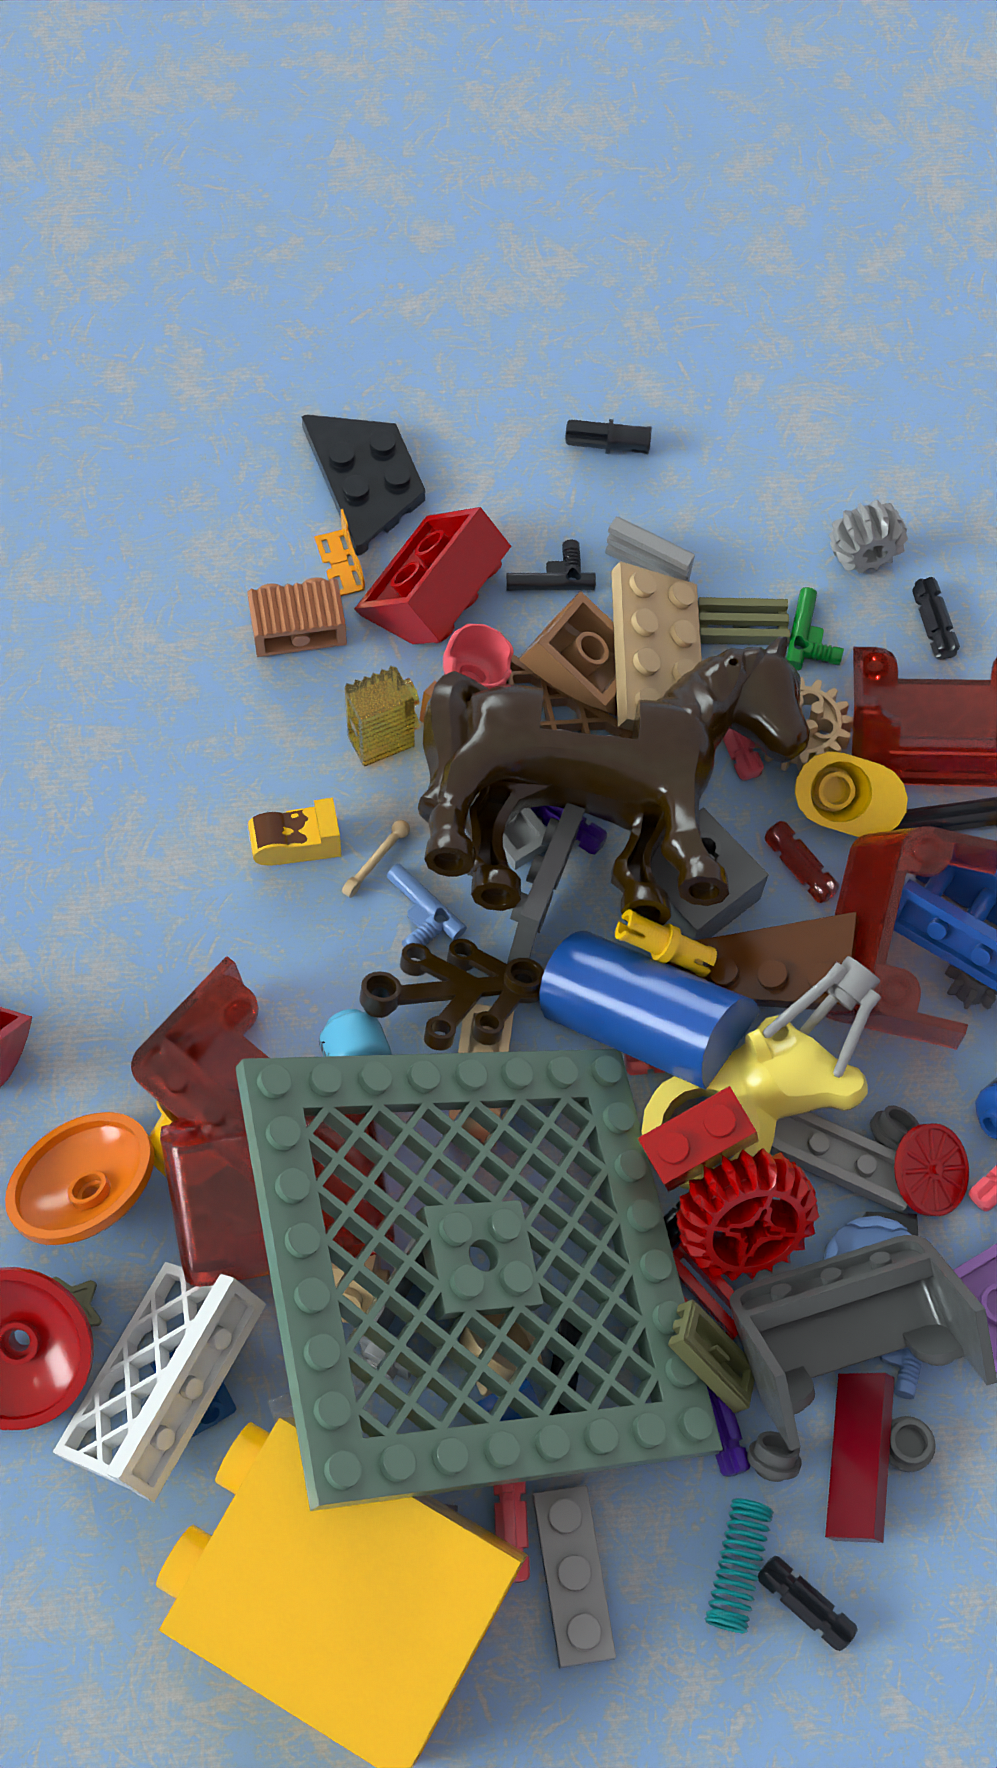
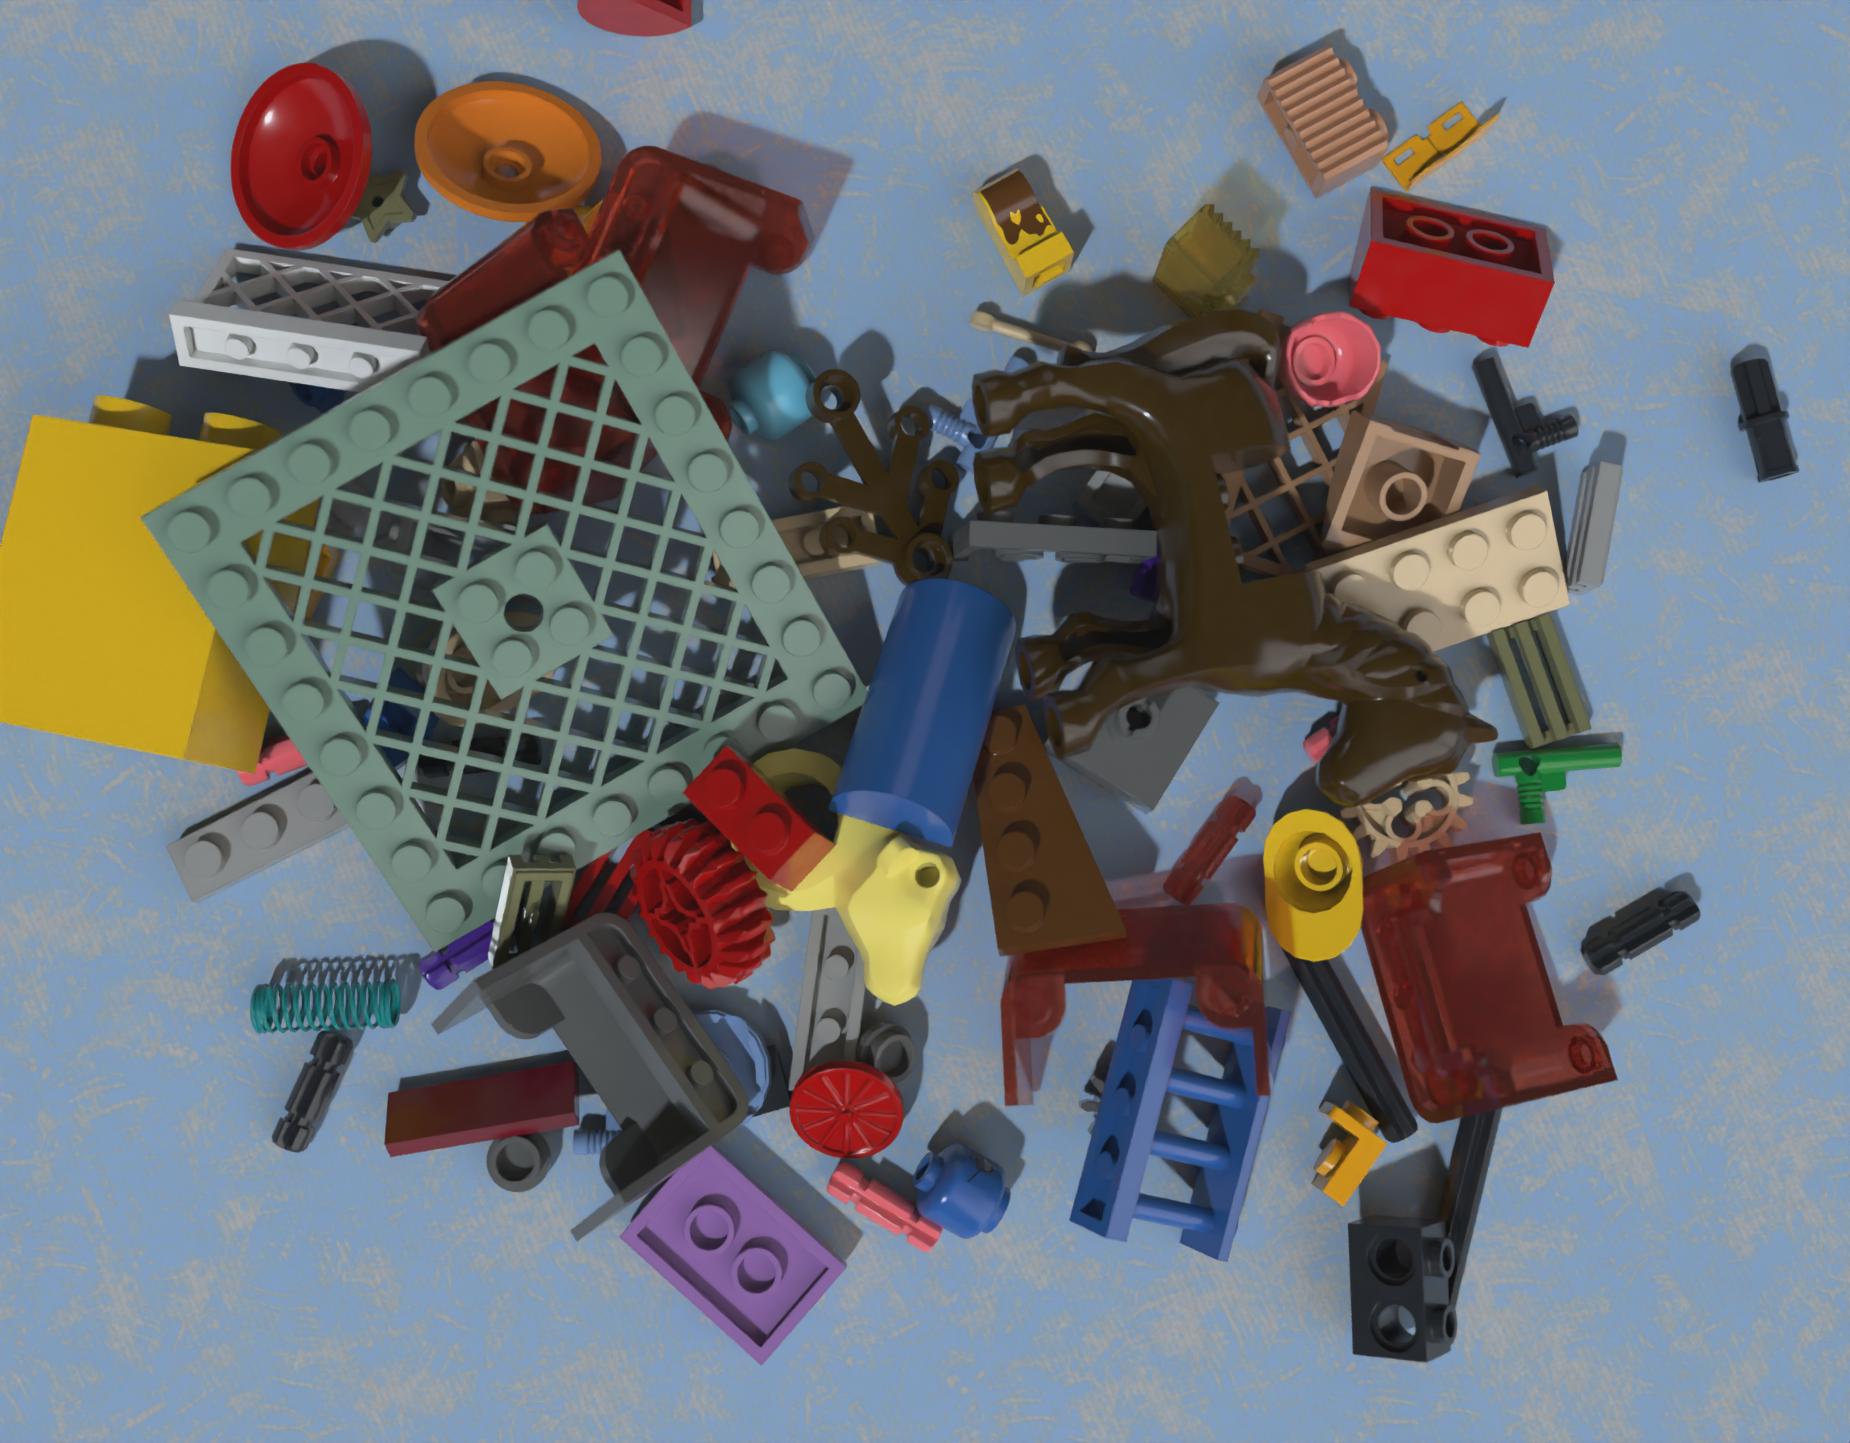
camera: 75 degrees right, 20 degrees up
(365, 473) = (1579, 129): black wing -> none
(665, 943) = (1002, 708): yellow pin -> none
(773, 1458) = (436, 1003): dark grey plate -> none
(846, 984) = (1001, 940): light grey plant -> none
(868, 536) = (1725, 808): light grey gear -> none

